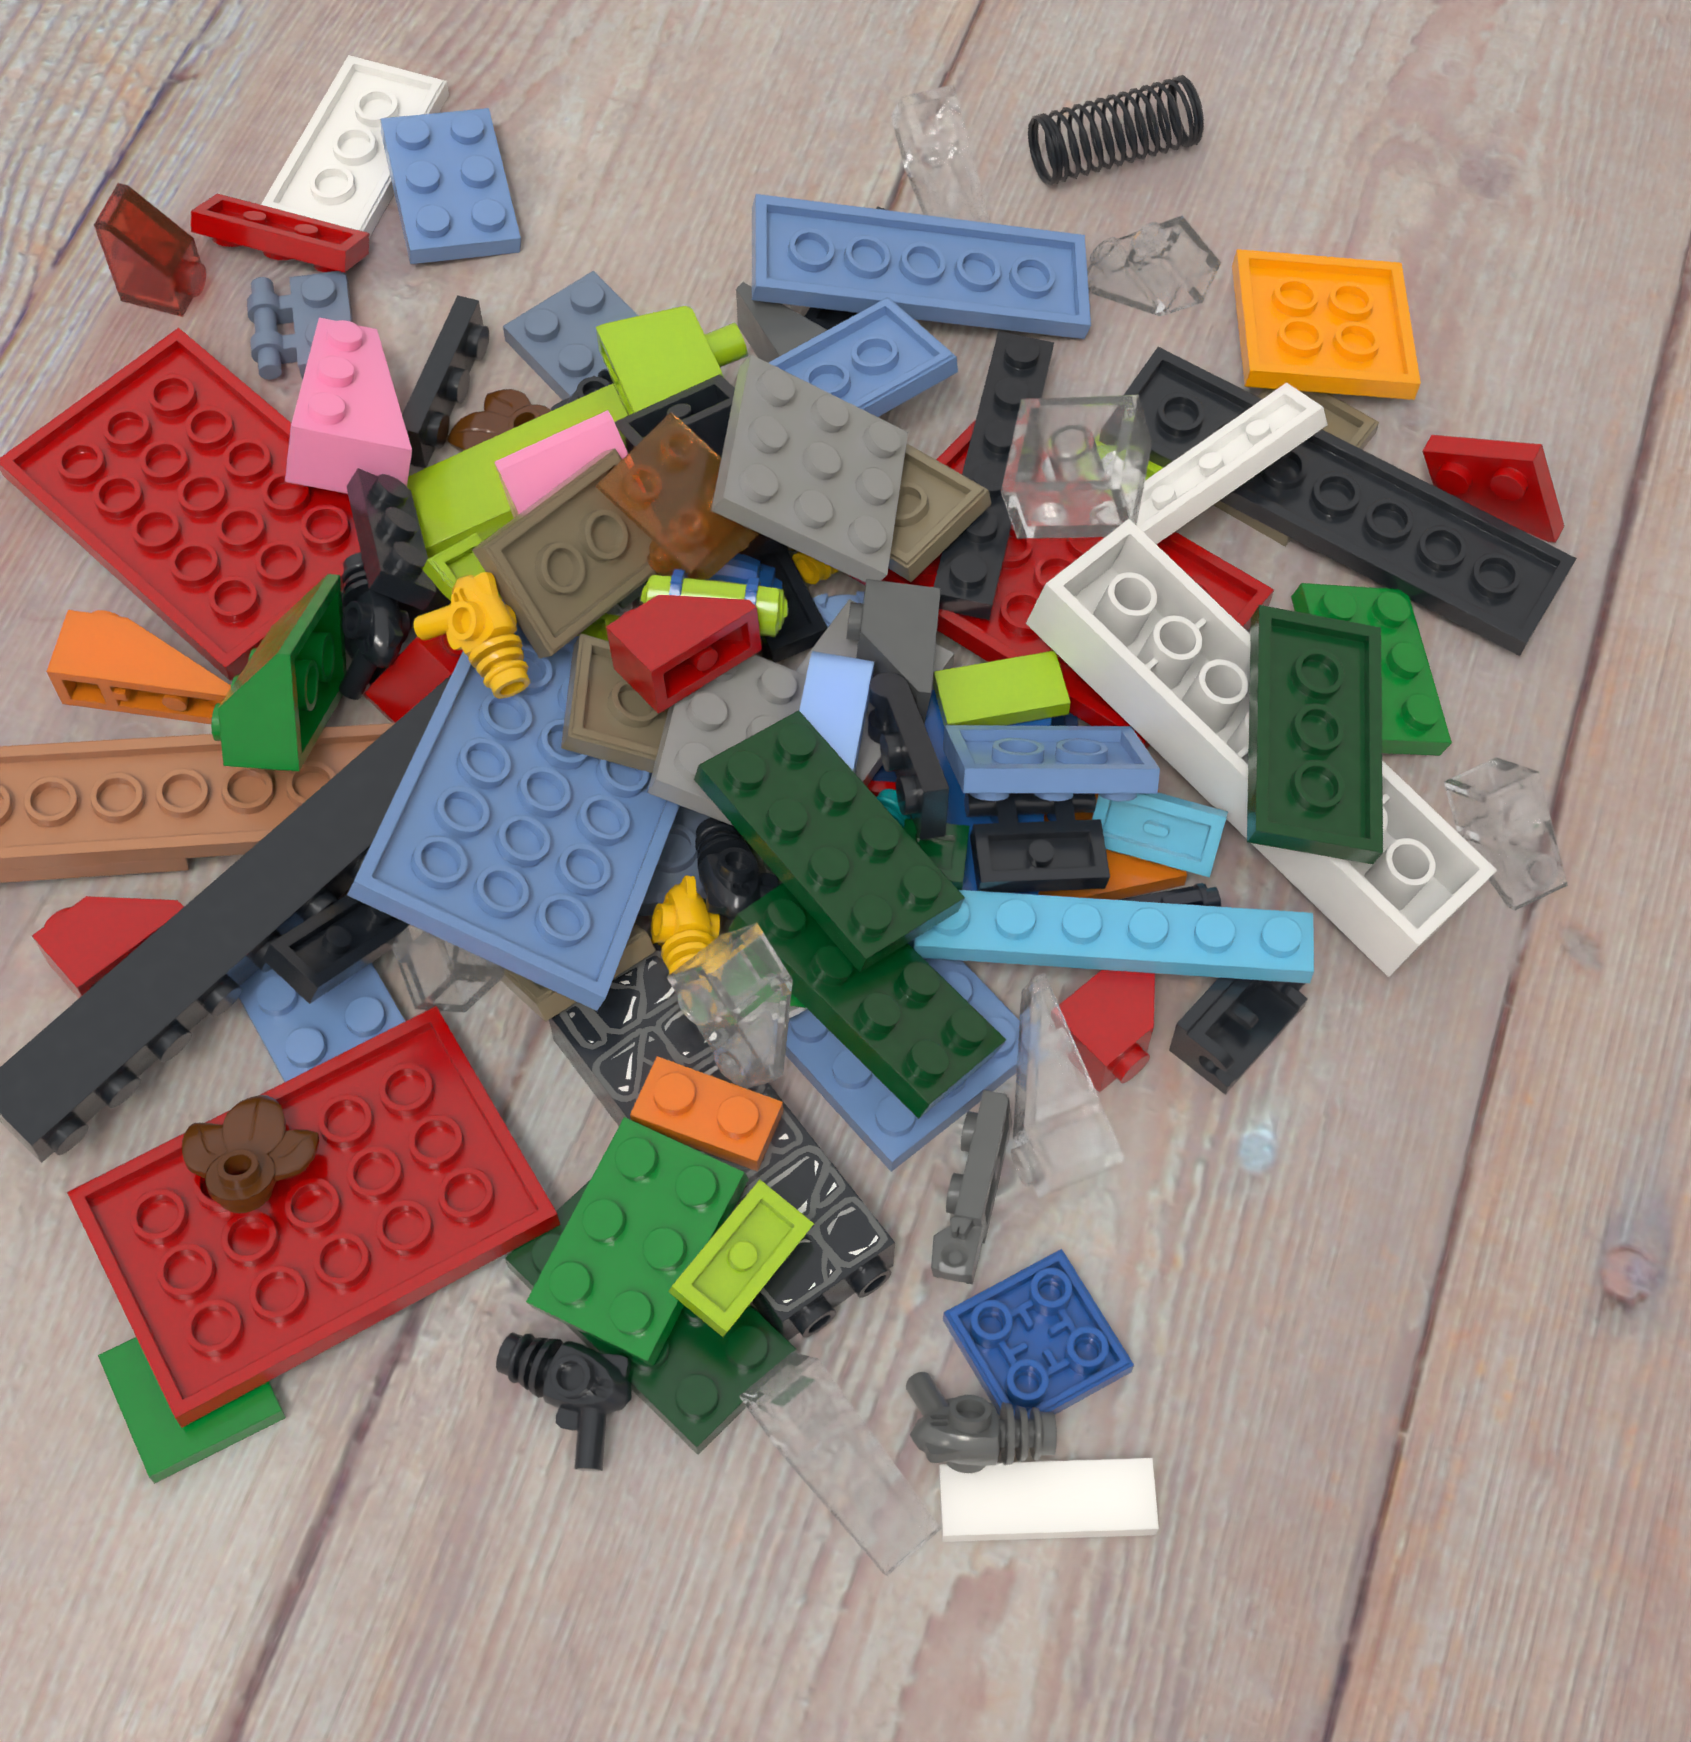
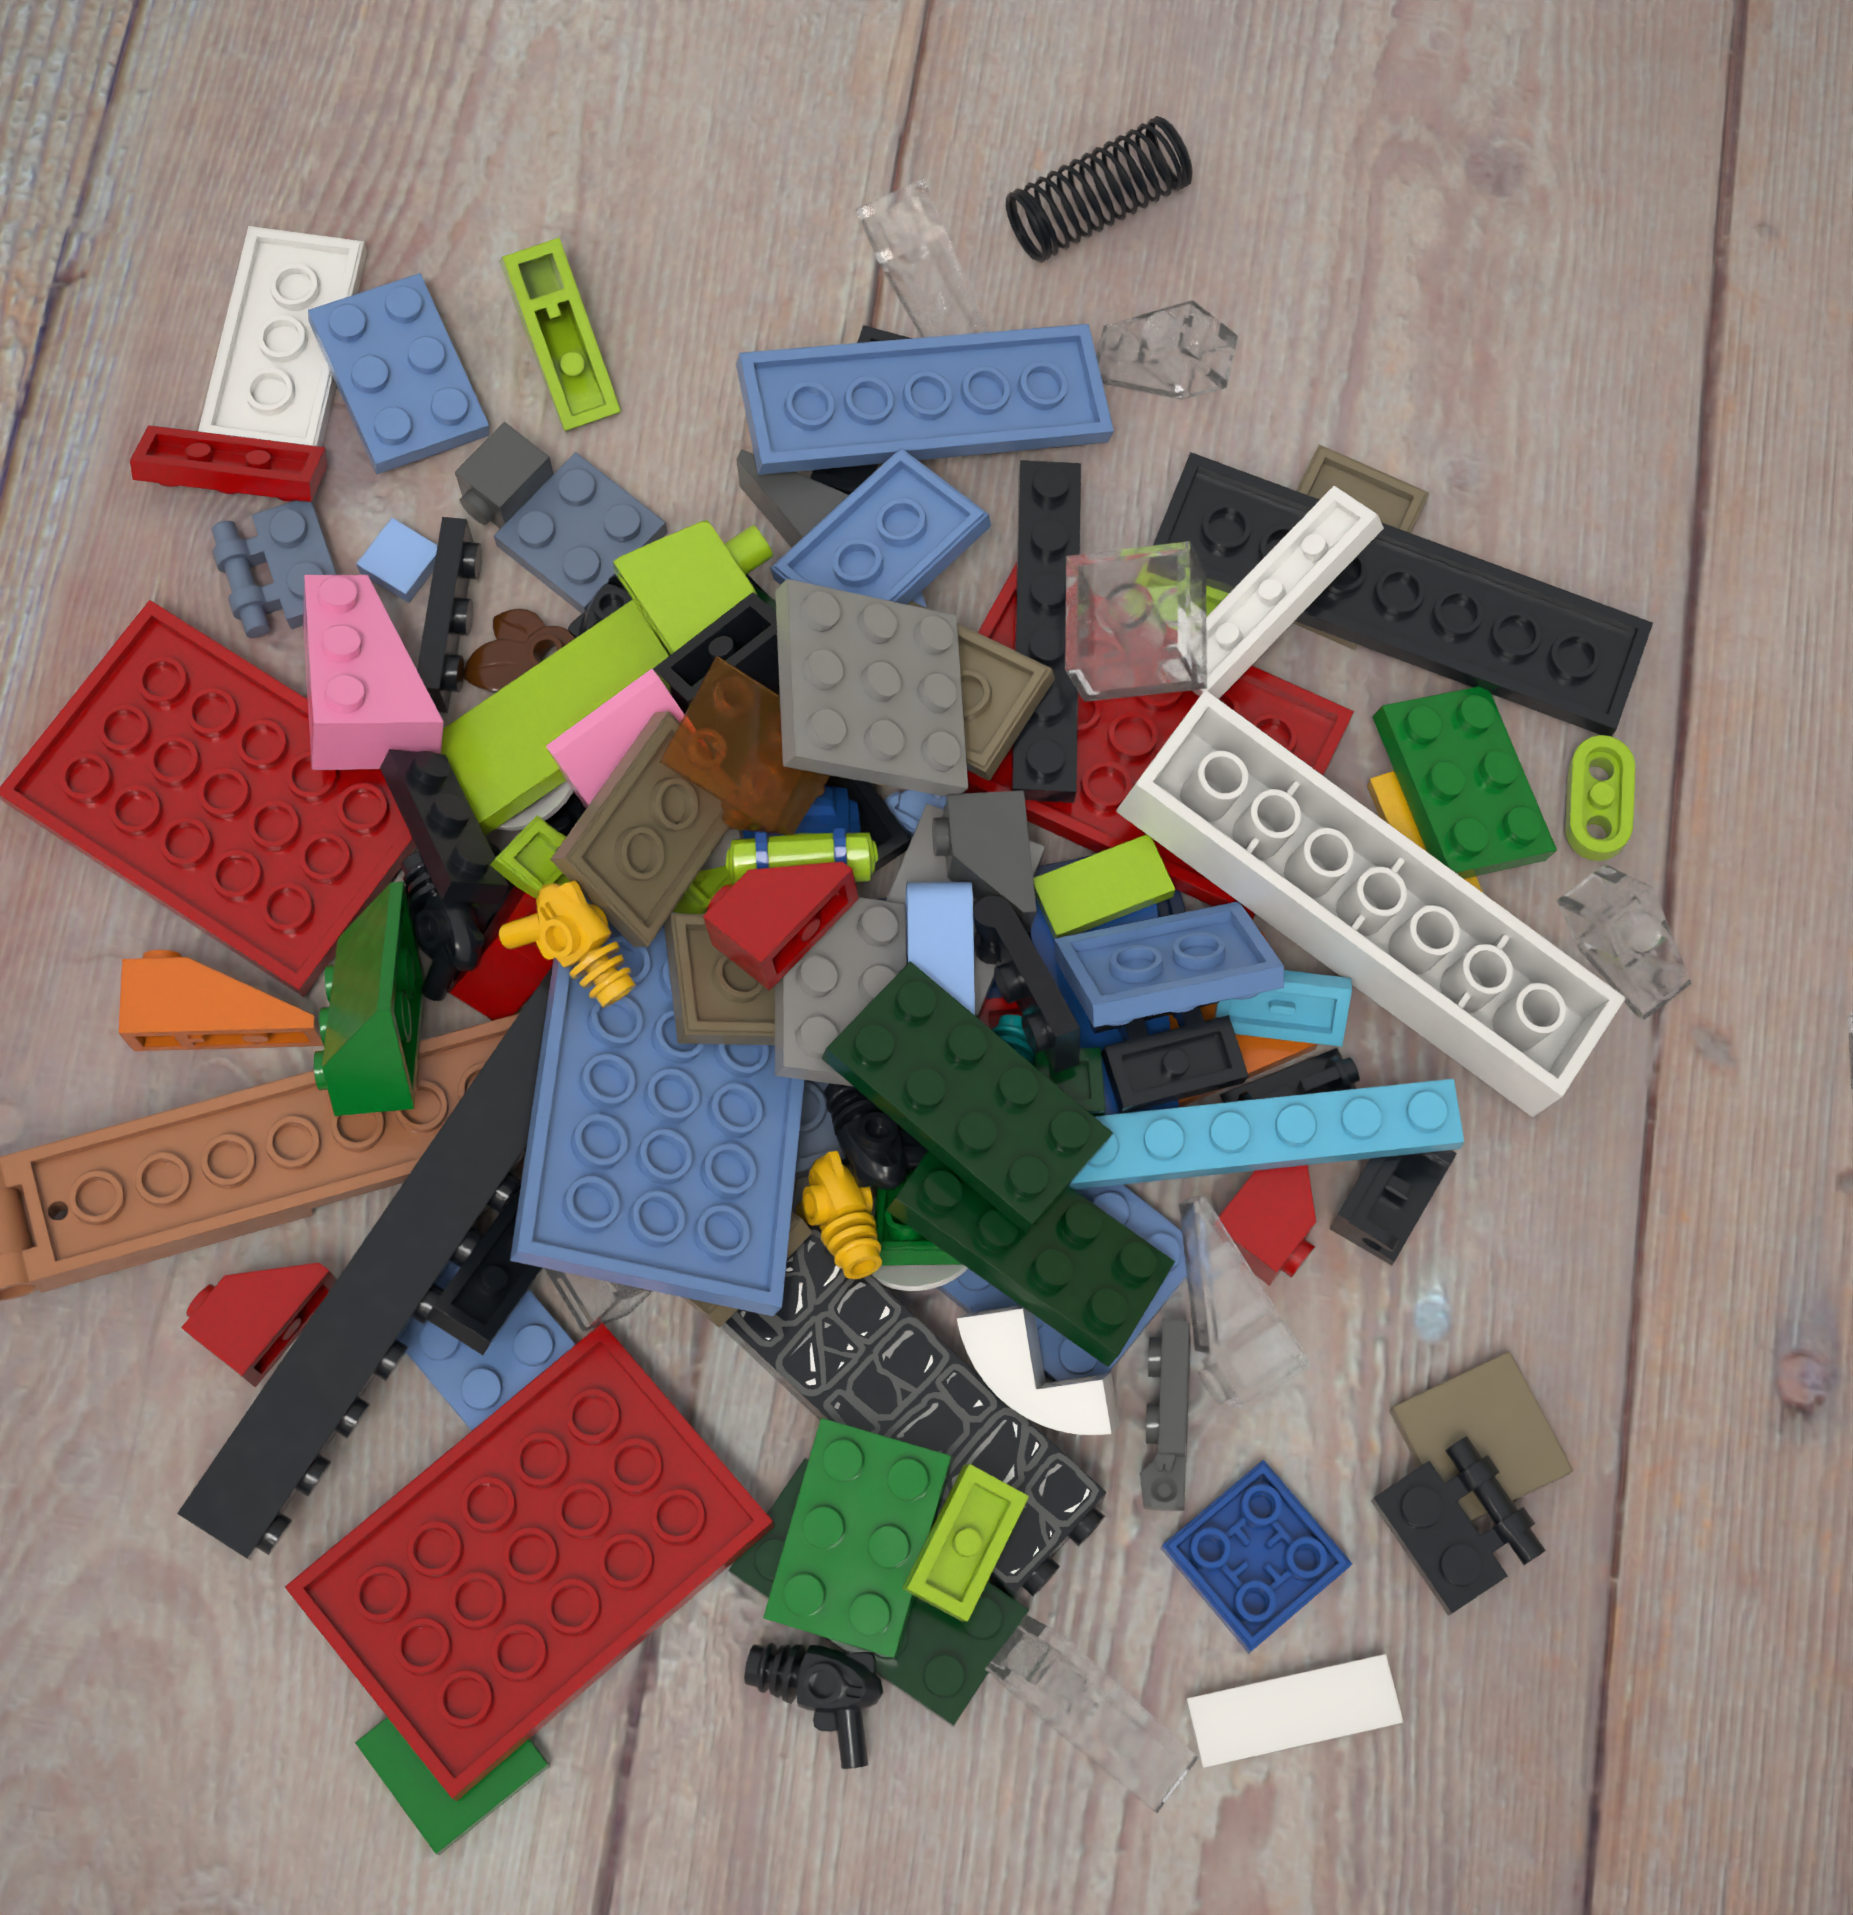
camera: 10 degrees left, 10 degrees up
(148, 254) = (99, 521): clear red slope -> none
(247, 1153) = (455, 1507): reddish brown plate -> none
(410, 334) = (399, 560): none -> light blue tile
(521, 276) = (501, 476): none -> dark grey brick
(601, 170) = (559, 333): none -> lime slope
(707, 1113) = (899, 1396): orange plate -> none
(739, 1003) = (913, 1284): clear slope -> none
(824, 1099) = (1009, 1360): none -> white brick
(969, 1432) = (1210, 1664): dark grey piece -> none
(1229, 1353) = (1440, 1536): none -> black plate
(1286, 1272) = (1500, 1420): none -> dark tan tile
(1315, 735) = (1430, 897): dark green plate -> none
(1324, 324) = (1356, 391): light orange plate -> none
(1499, 478) = (1560, 547): red wing -> none
(1501, 708) = (1600, 802): none -> lime plate

